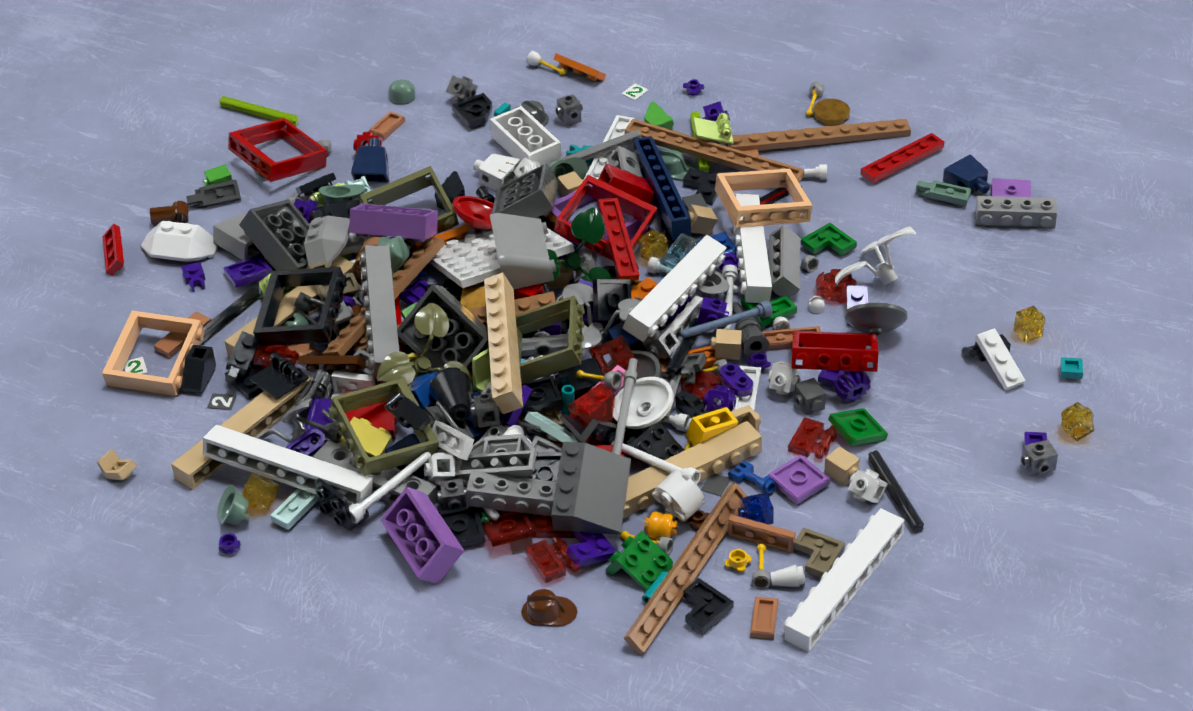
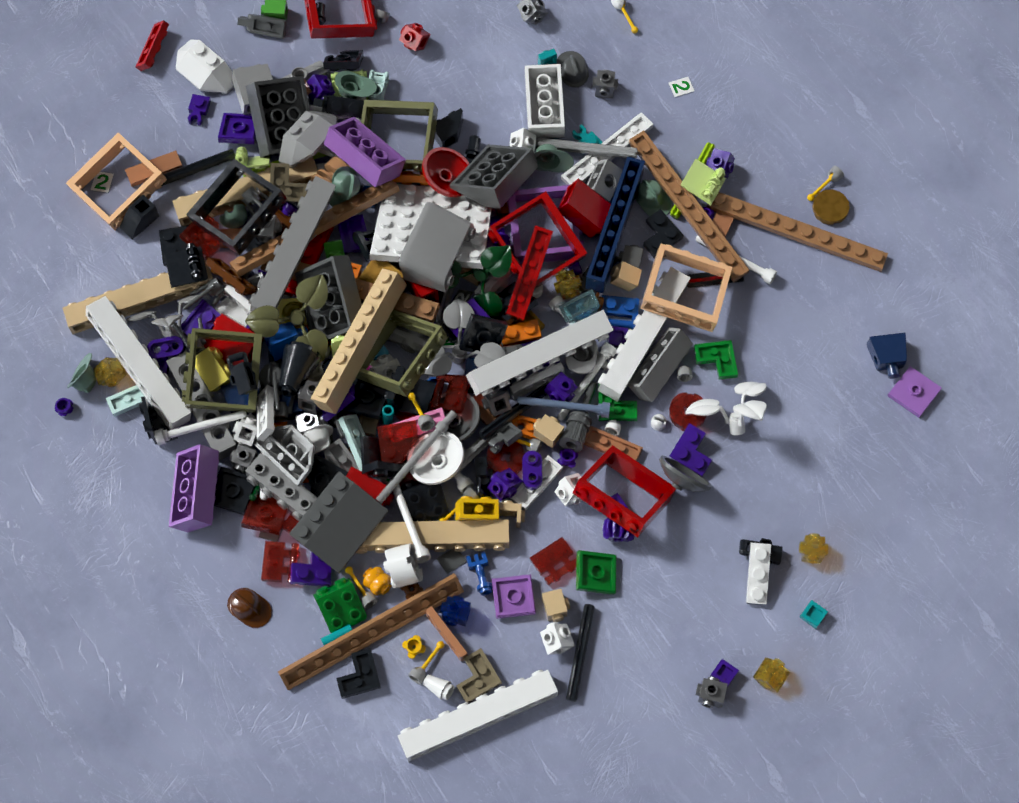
camera: 30 degrees right, 25 degrees up
(115, 468) = (27, 282): tan bracket -> none
(176, 213) = (221, 31): reddish brown piece -> none
(221, 401) = (143, 255): dark grey sticker -> none
(241, 356) = (172, 226): black hinge -> none
(371, 162) = (403, 59): dark blue torso -> none
(387, 125) = (448, 16): nougat tile -> none
(473, 110) = (529, 38): black plate -> none
(496, 170) = (500, 124): white torso -> none
(568, 183) = (548, 175): tan brick -> none
(579, 68) = (649, 34): orange plate -> none
(656, 116) = (669, 138): bright green slope -> none
(693, 87) = (732, 115): dark purple plate -> none
(764, 618) = (396, 711): nougat tile -> none
(809, 396) = (579, 519): dark grey brick -> none
(902, 158) = (850, 298): red plate -> none
(944, 192) = (856, 359): sand green hinge -> none
(1016, 211) = (899, 417): light grey brick -> none

